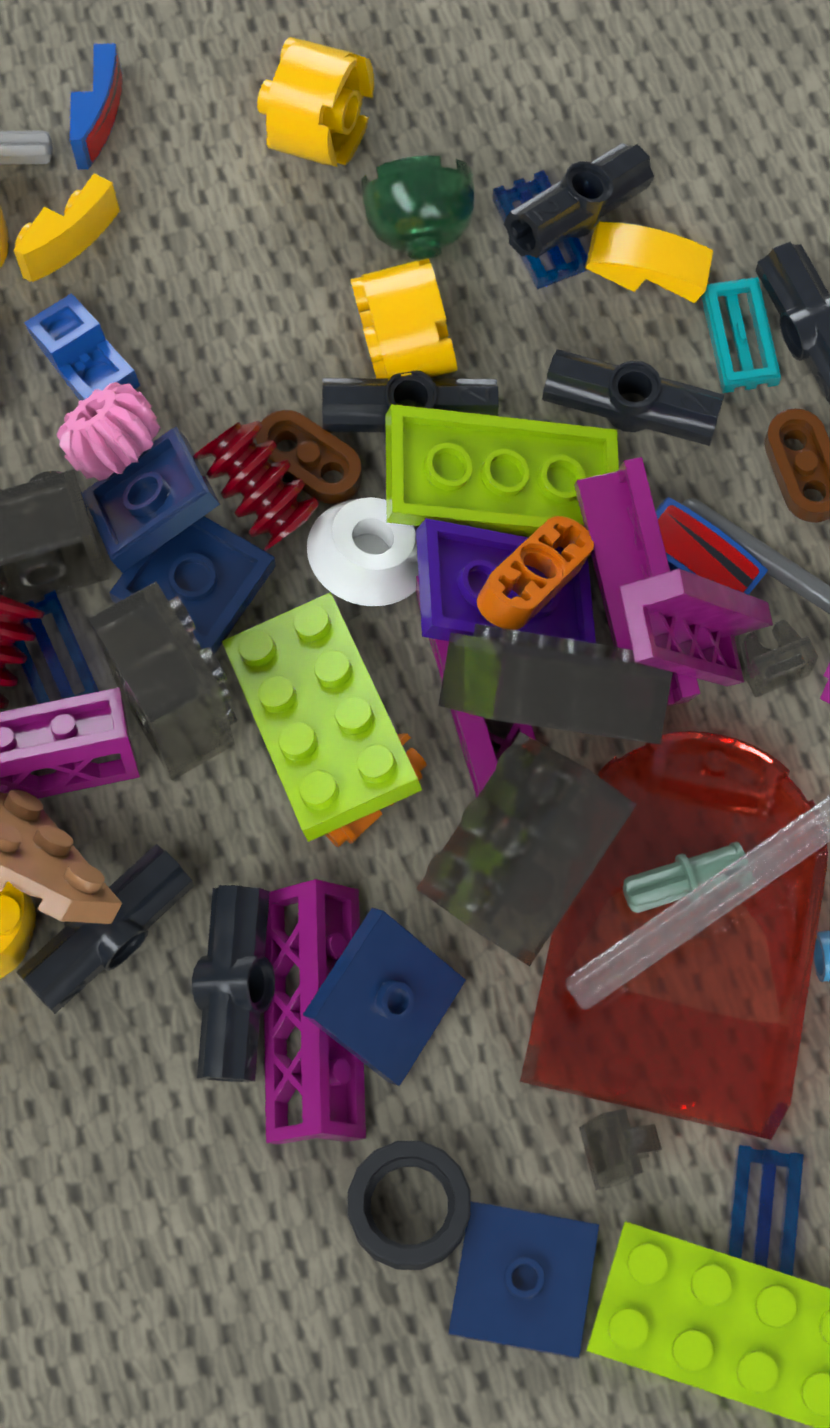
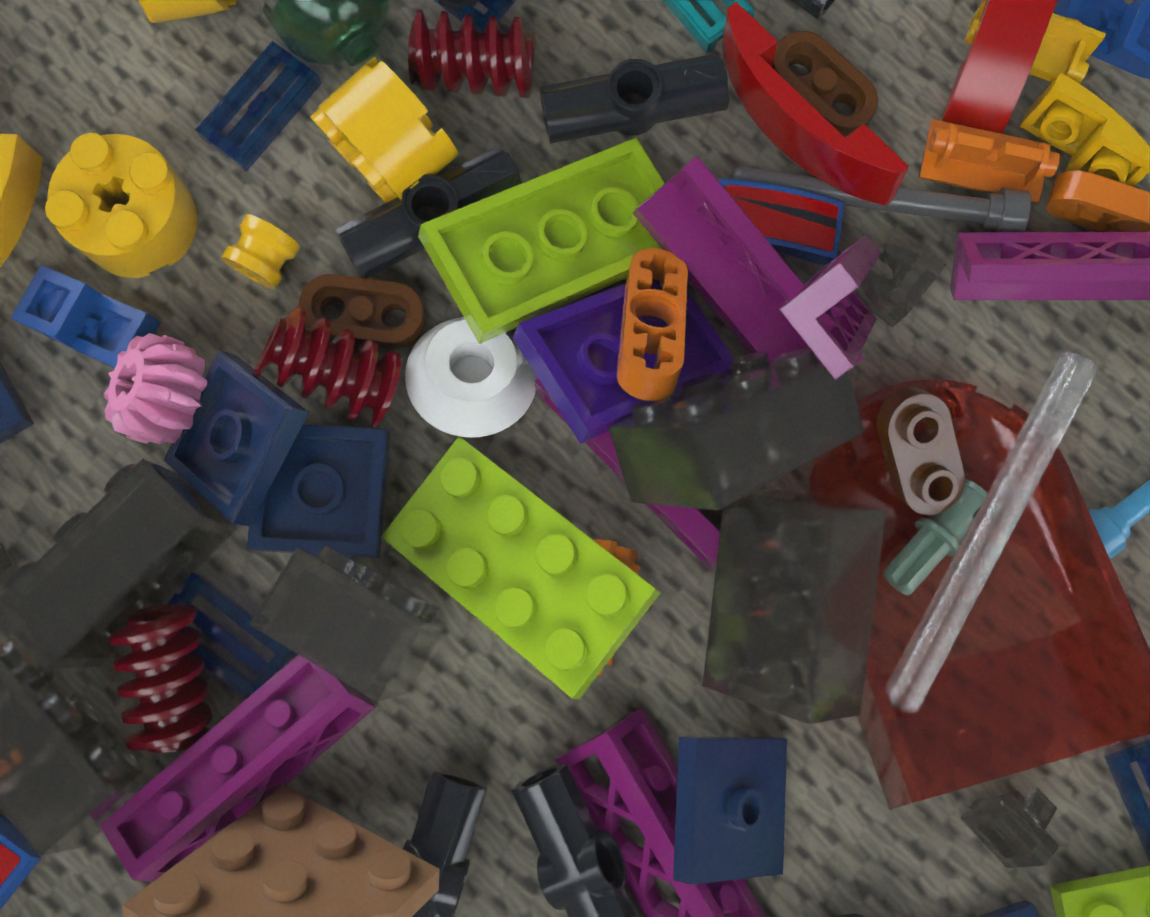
camera: 30 degrees left, 10 degrees up
(163, 278) = (121, 204): none -> yellow brick
(252, 368) = (260, 251): none -> yellow wheel
(284, 276) = (274, 121): none -> clear blue tile
(515, 299) = (471, 55): none -> dark red piece
(705, 794) = (922, 457): none -> plate
(782, 534) = (853, 164): none -> red slope

